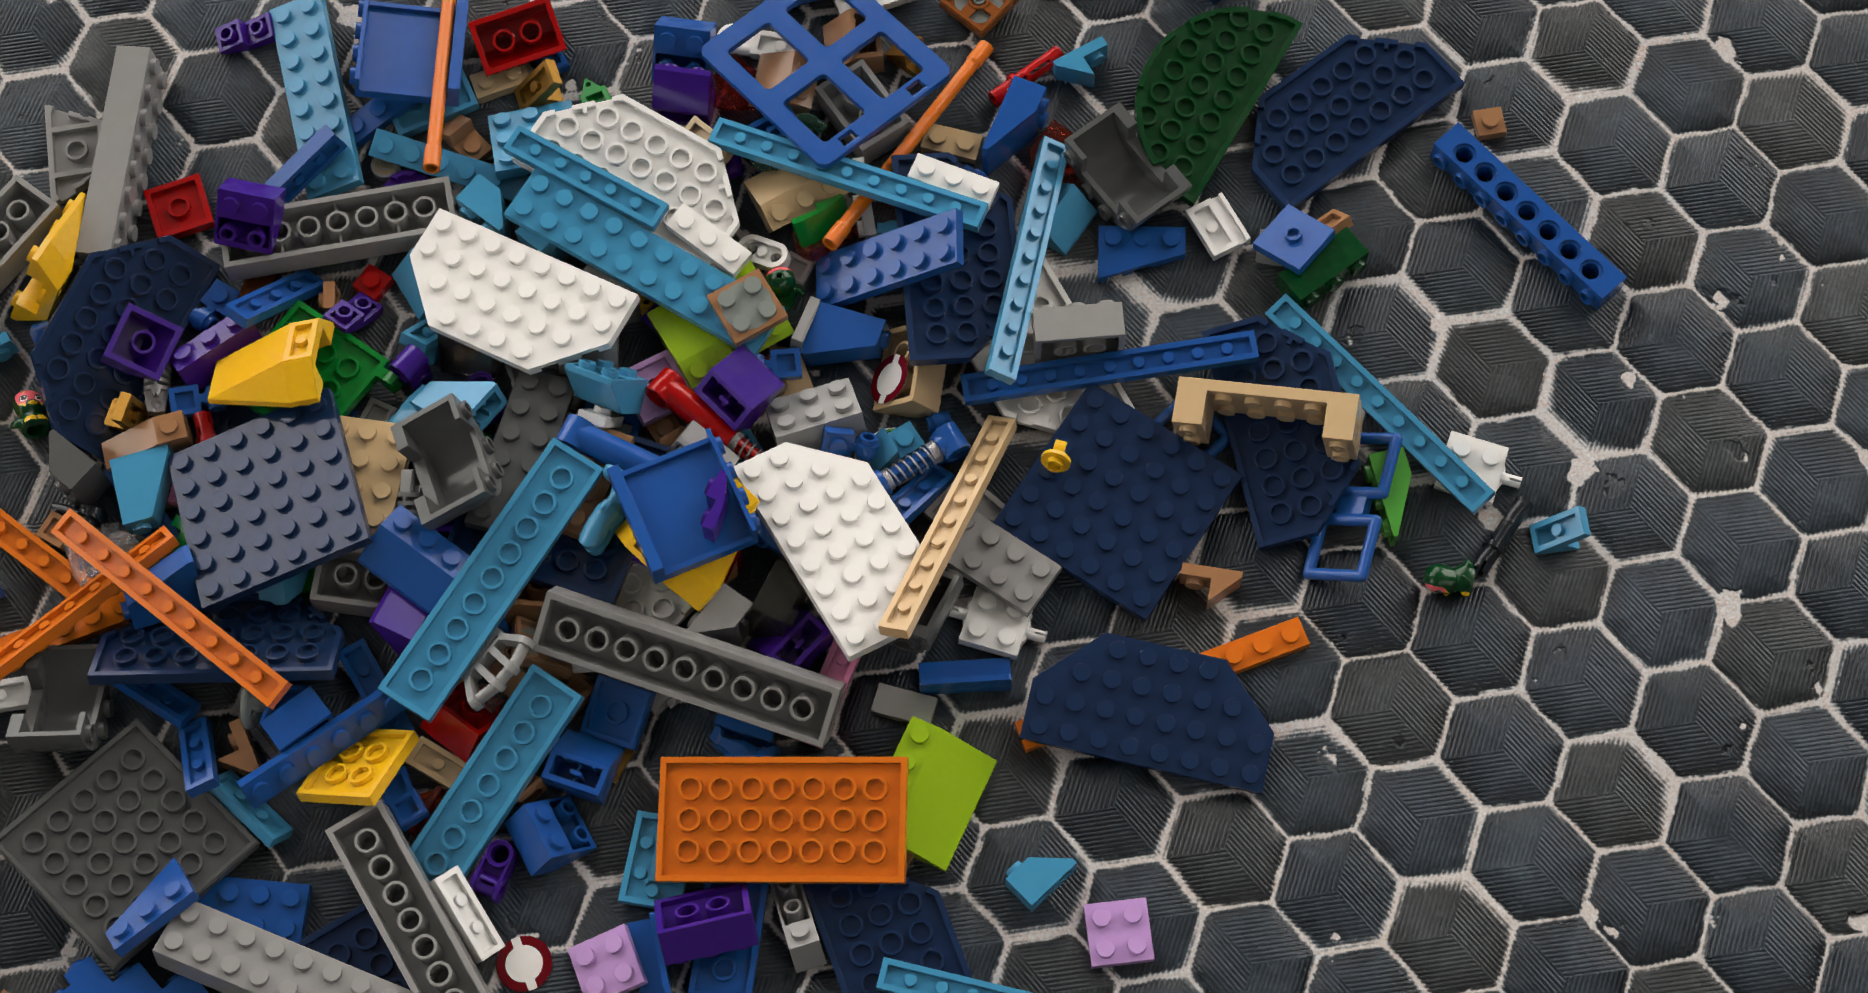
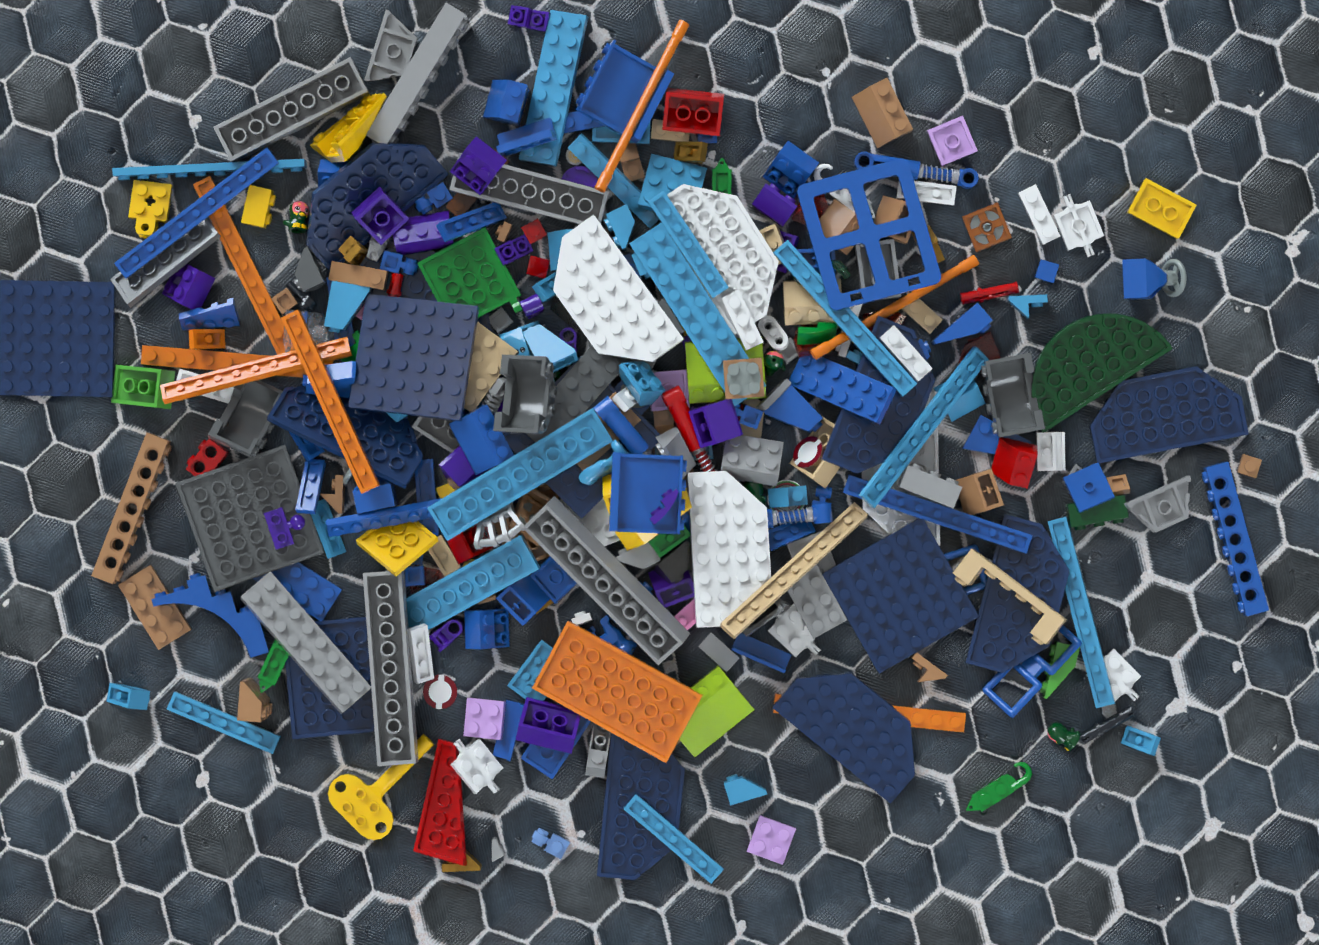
camera: 25 degrees right, 20 degrees up
(19, 794) = (202, 456): none -> red brick
(156, 906) = (251, 570): blue wing -> none
(176, 832) = (280, 527): none -> dark purple plate
(180, 207) = (439, 122): red plate -> none
(260, 135) = (506, 102): none -> blue slope
(274, 369) = (450, 275): yellow wedge -> none
(395, 322) = (538, 267): none -> red slope
(685, 748) = (582, 618): none -> white plate
(750, 569) = (665, 542): none -> green piece
(843, 441) = (759, 484): blue plate -> none
(1056, 459) = (875, 559): yellow plate -> none
(1086, 18) = (1046, 271): none -> blue tile
(1154, 314) = (979, 492): none -> medium nougat slope
(1176, 256) = (1014, 461): none -> red slope
(1403, 699) = (998, 789): none -> green plate
(1405, 220) = (1162, 506): none -> light grey wing

